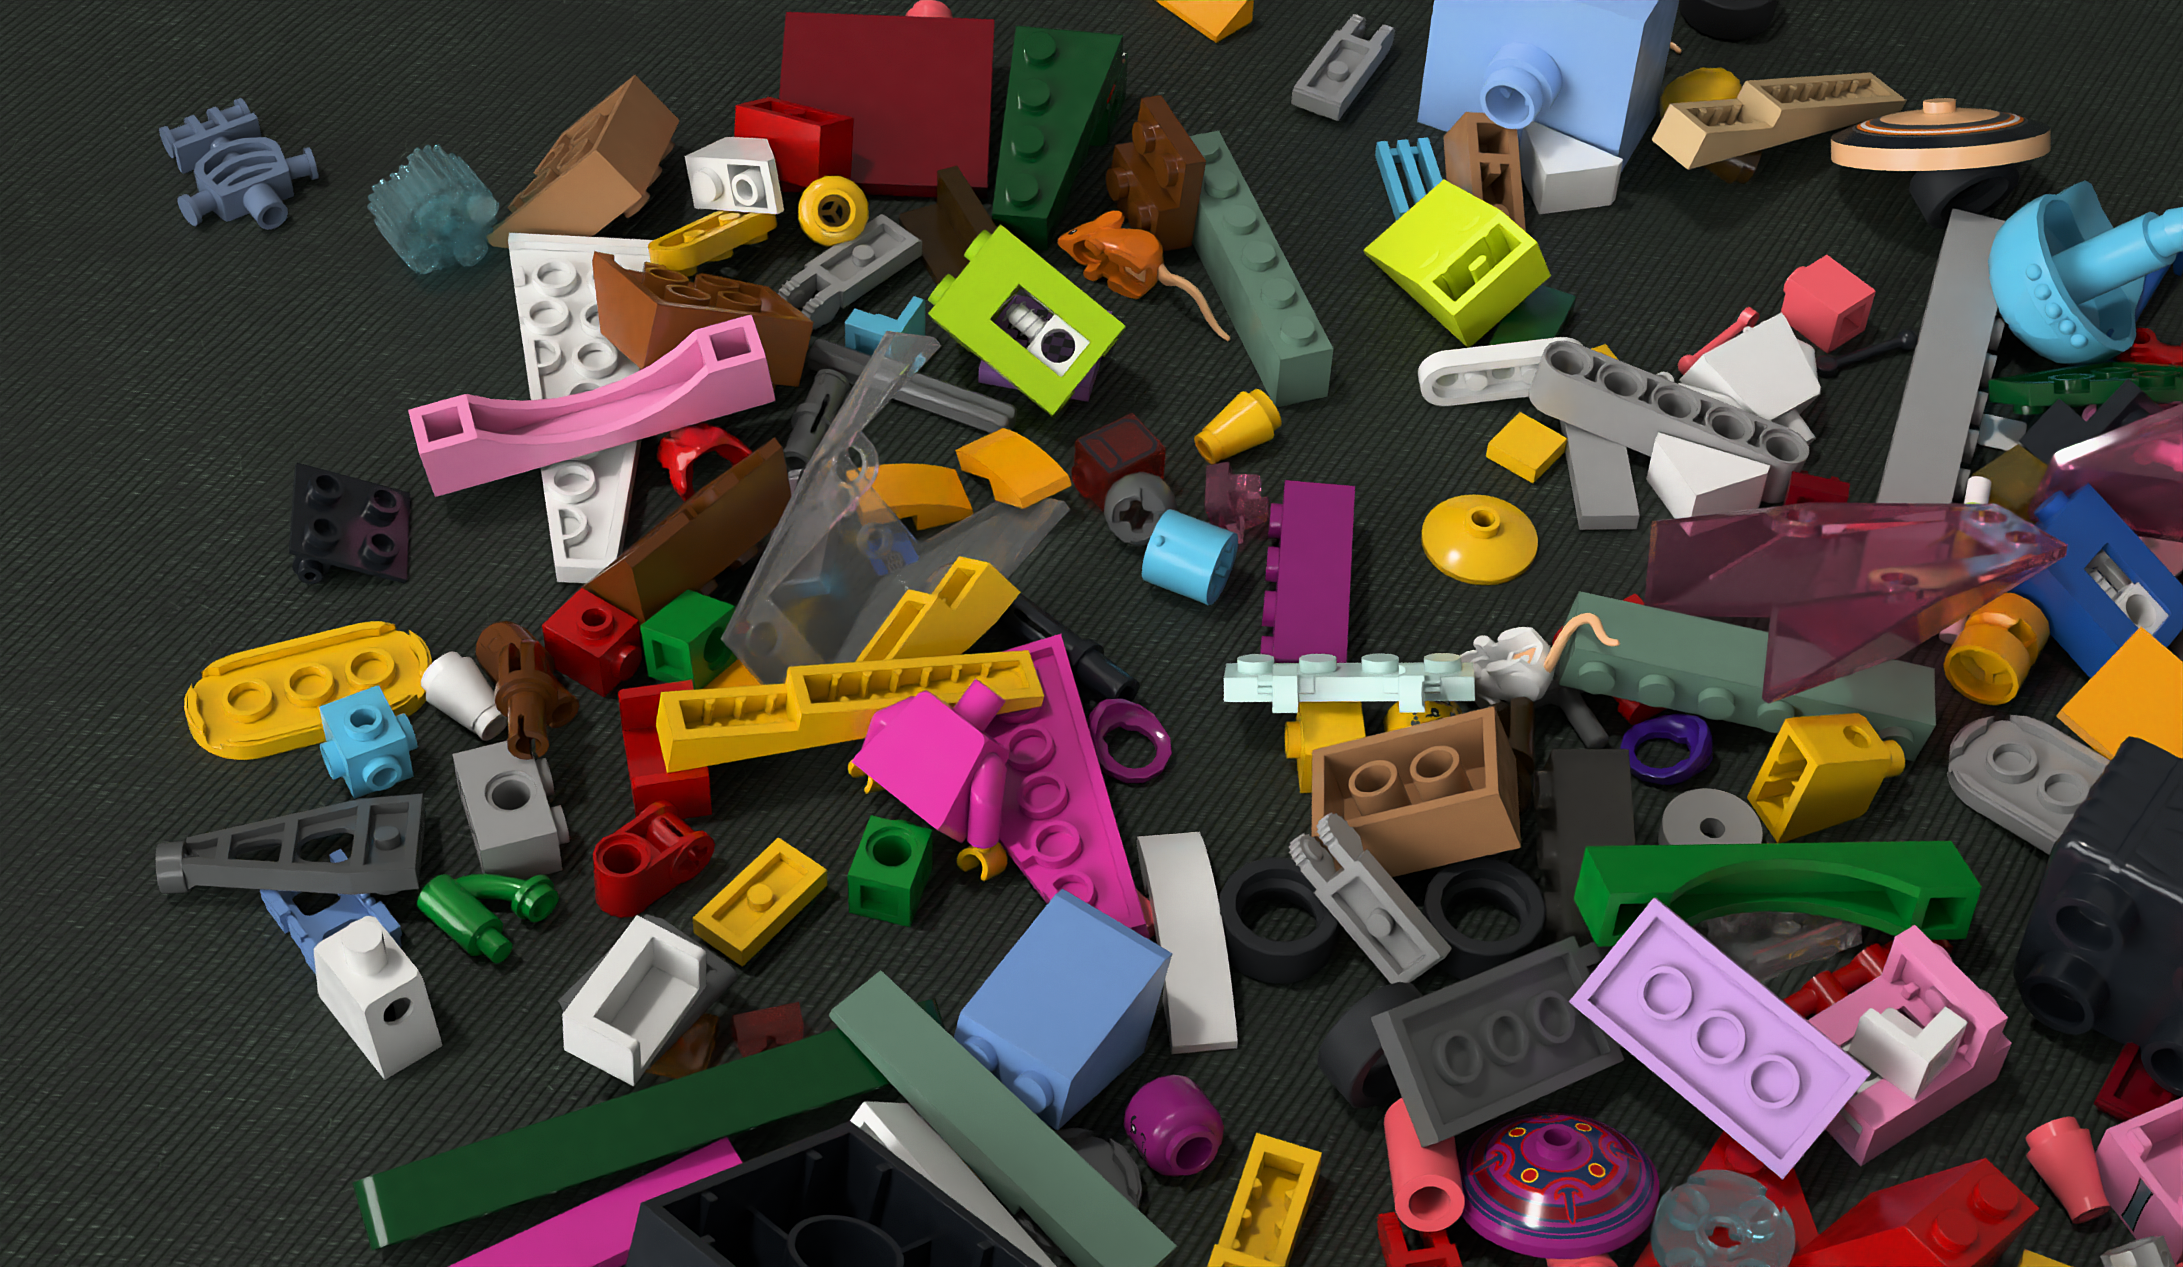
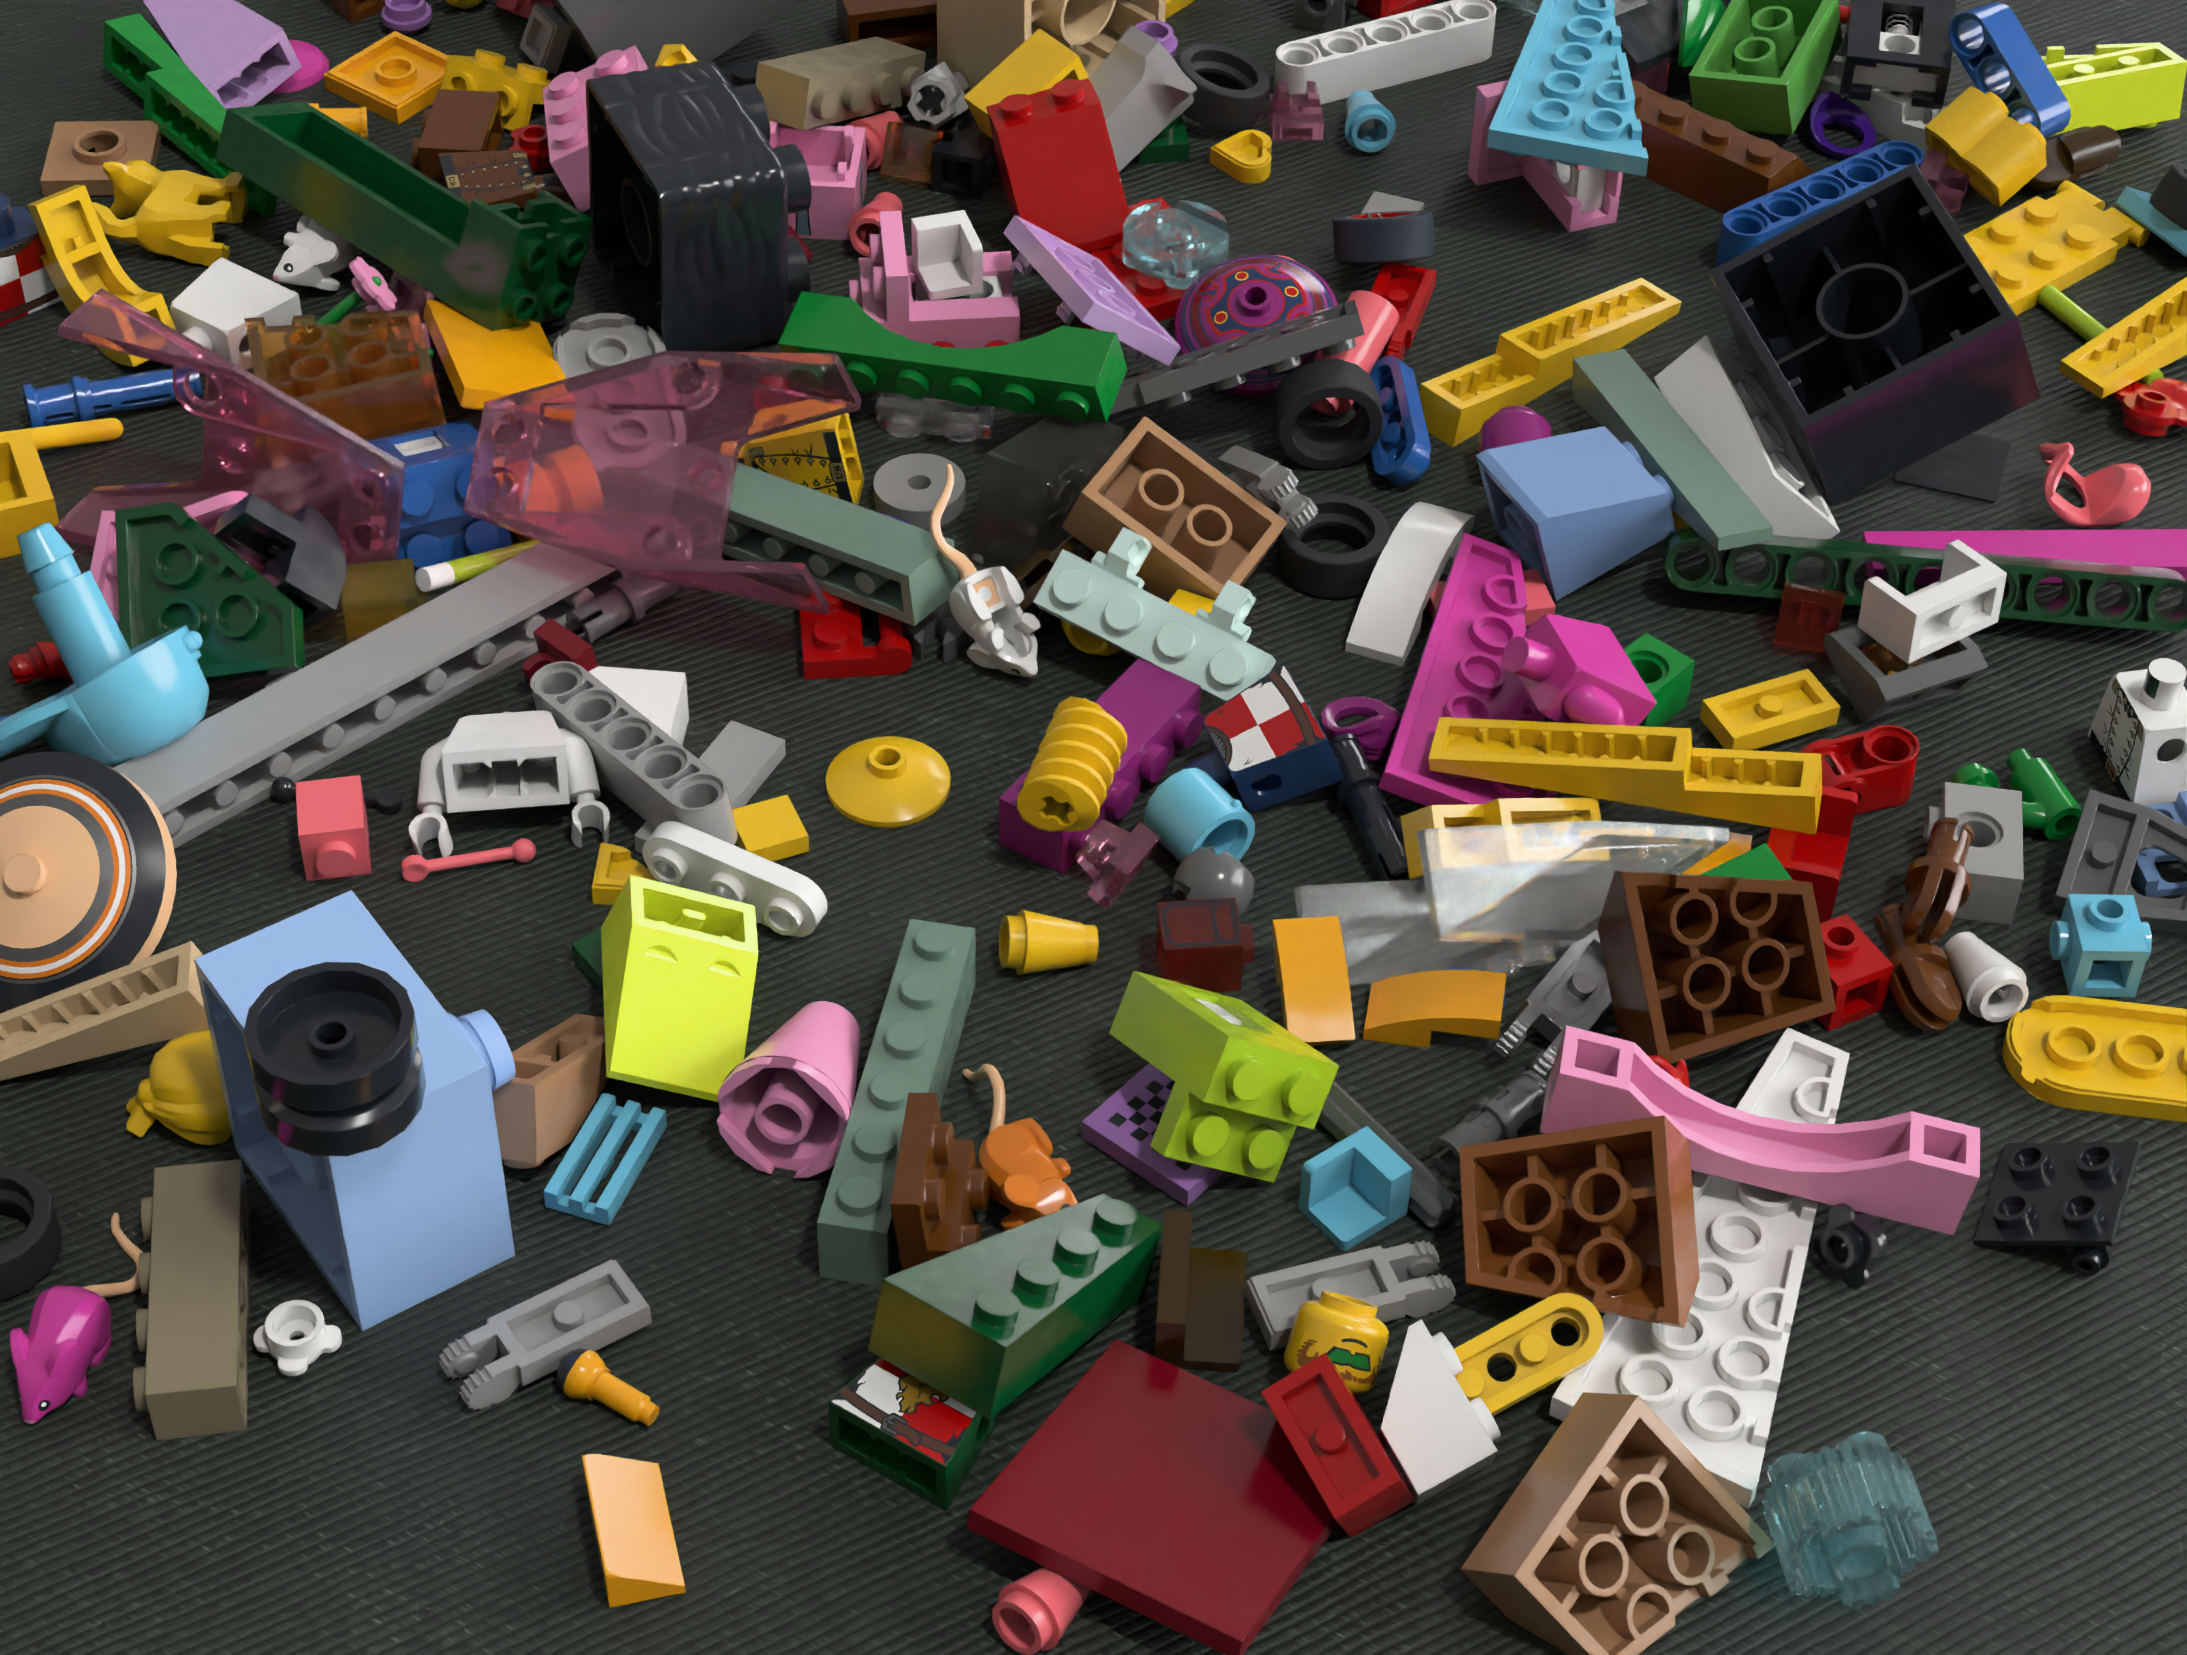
camera: 150 degrees left, 5 degrees down
(1177, 644) = (1268, 744): none -> torso
(1295, 58) = (585, 1376): none -> light orange piece
(1301, 485) = (1072, 767): none -> yellow piece
(1318, 232) = (794, 1093): none -> bright pink cone
(1322, 1117) = (1404, 446): none -> blue plate

